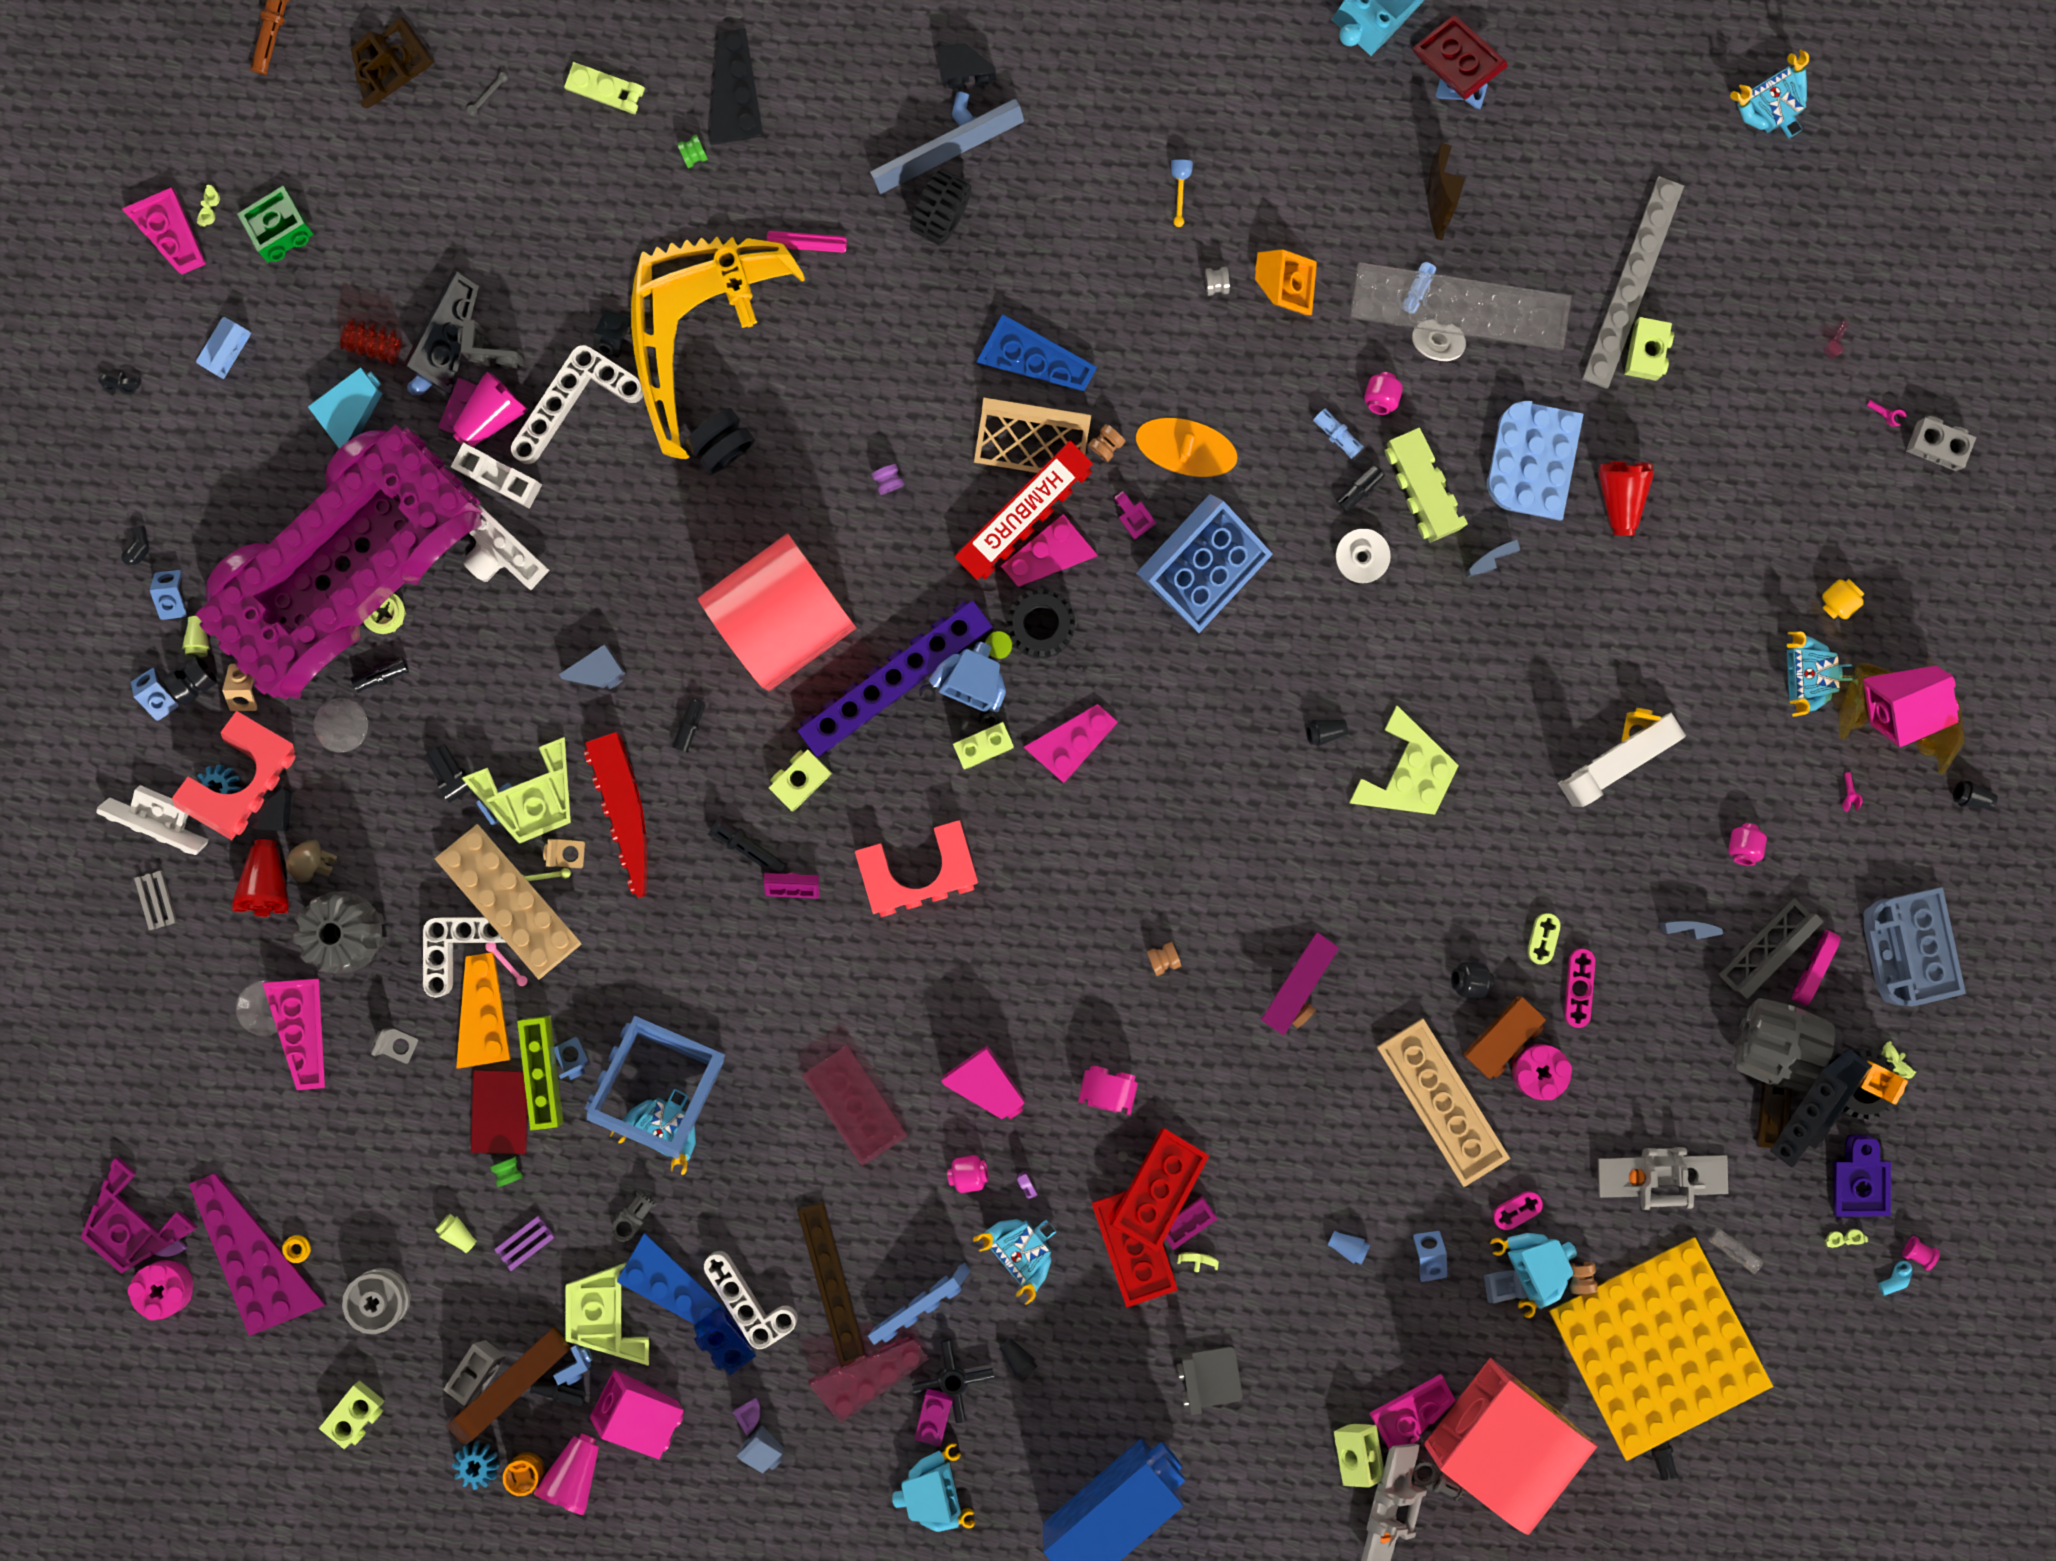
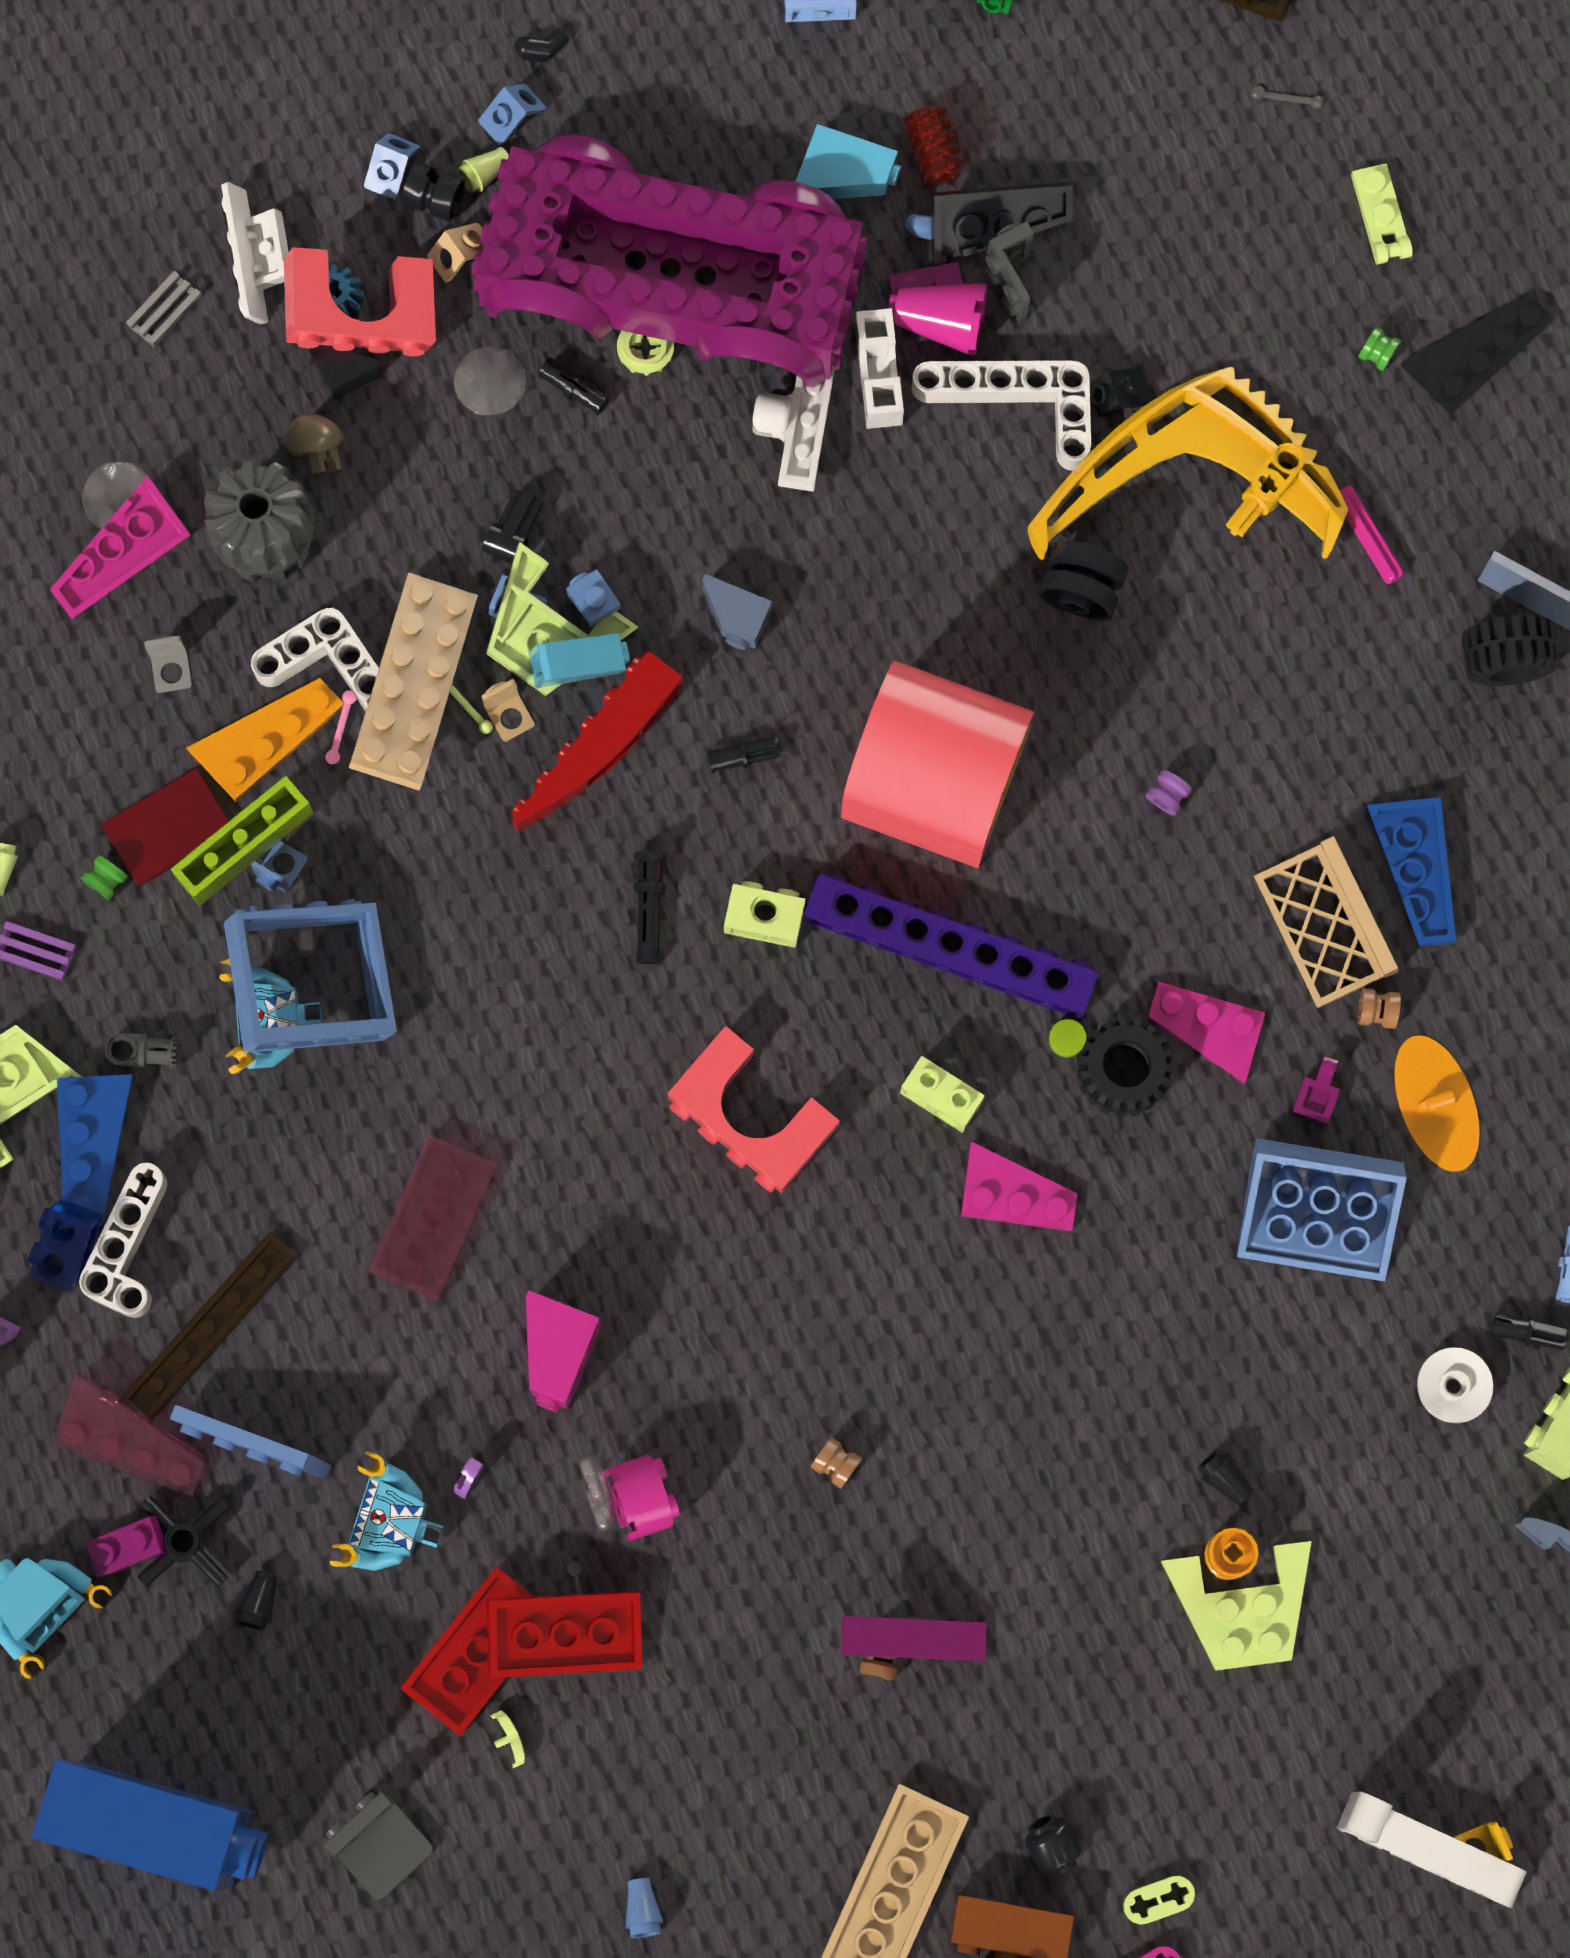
camera: 55 degrees right, 10 degrees down
(262, 882) = (259, 406): red cone -> none
(526, 753) = (592, 597): none -> medium blue bracket
(563, 790) = (578, 659): none -> medium azure slope
(791, 885) = (638, 983): magenta plate -> none
(968, 1174) = (438, 1400): dark pink head -> none
(971, 680) = (1007, 1029): medium blue torso -> none
(1024, 510) = (1238, 964): red brick -> none
(1089, 1114) = (599, 1493): none -> clear dish
(1190, 1222) = (548, 1698): magenta plate -> none
(1374, 760) = (1231, 1554): none -> light orange wheel

